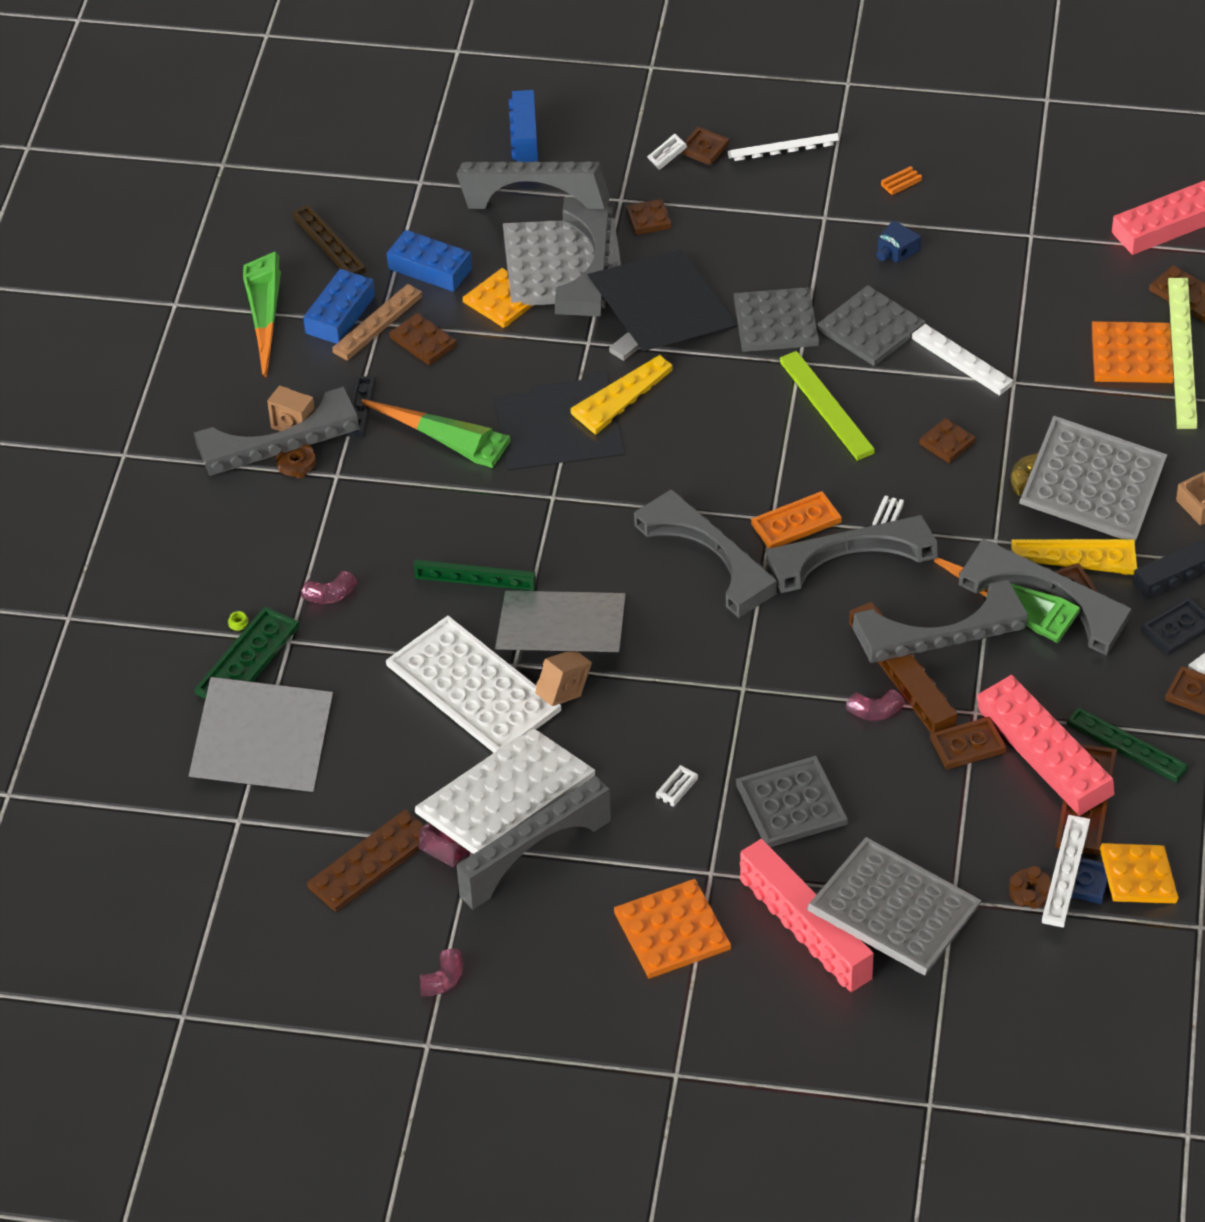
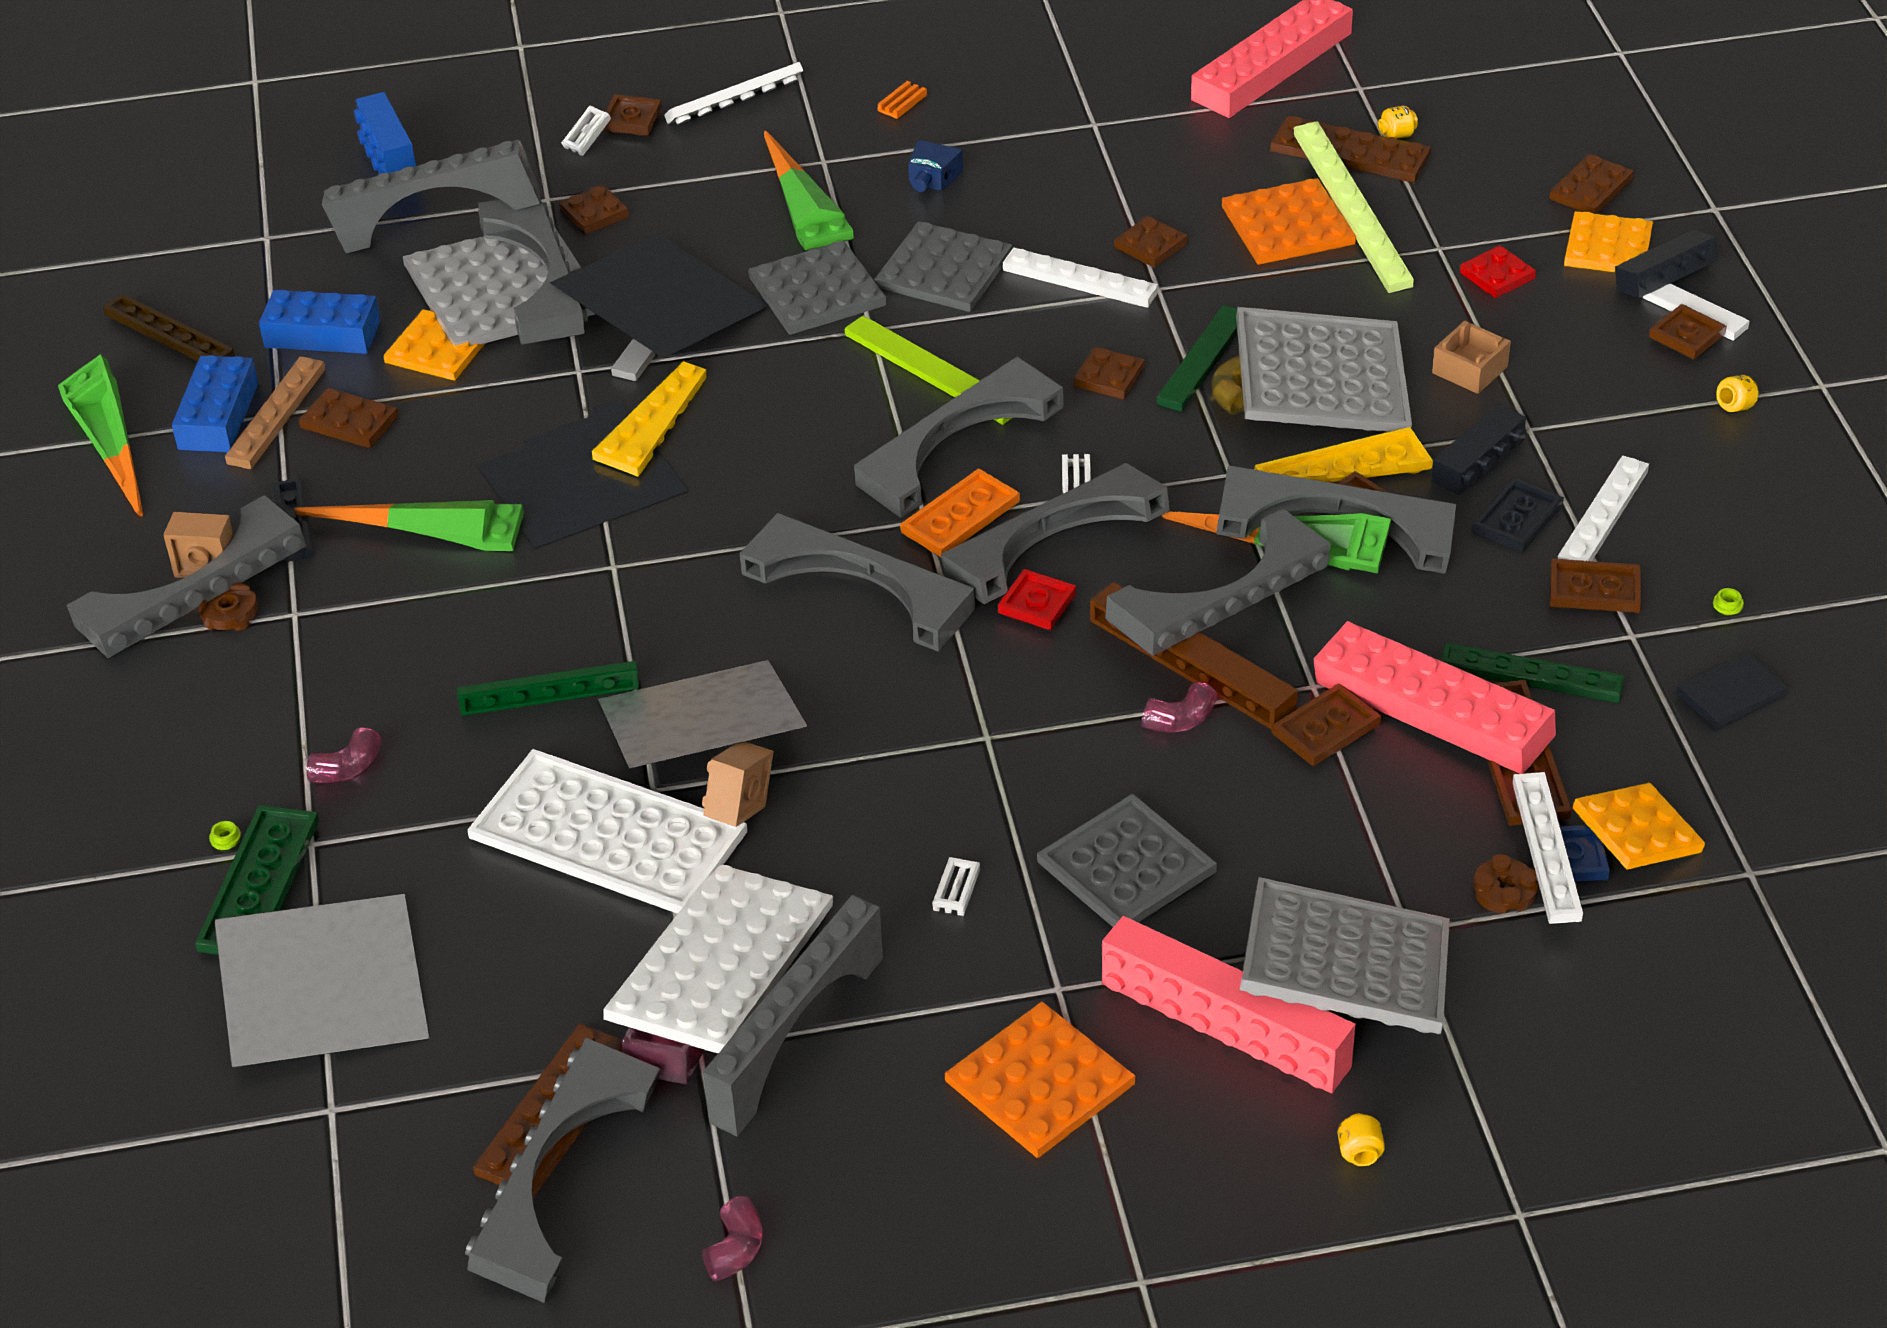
camera: 20 degrees left, 5 degrees down
(394, 853) = (511, 1242): none -> dark grey arch
(798, 260) = (812, 212): none -> bright green plate
(818, 599) = (1037, 599): none -> red plate
(851, 1027) = (1361, 1139): none -> yellow head
(865, 439) = (1008, 392): none -> dark grey arch
(1014, 447) = (1199, 360): none -> dark green tile
(1025, 343) = (1151, 241): none -> reddish brown plate

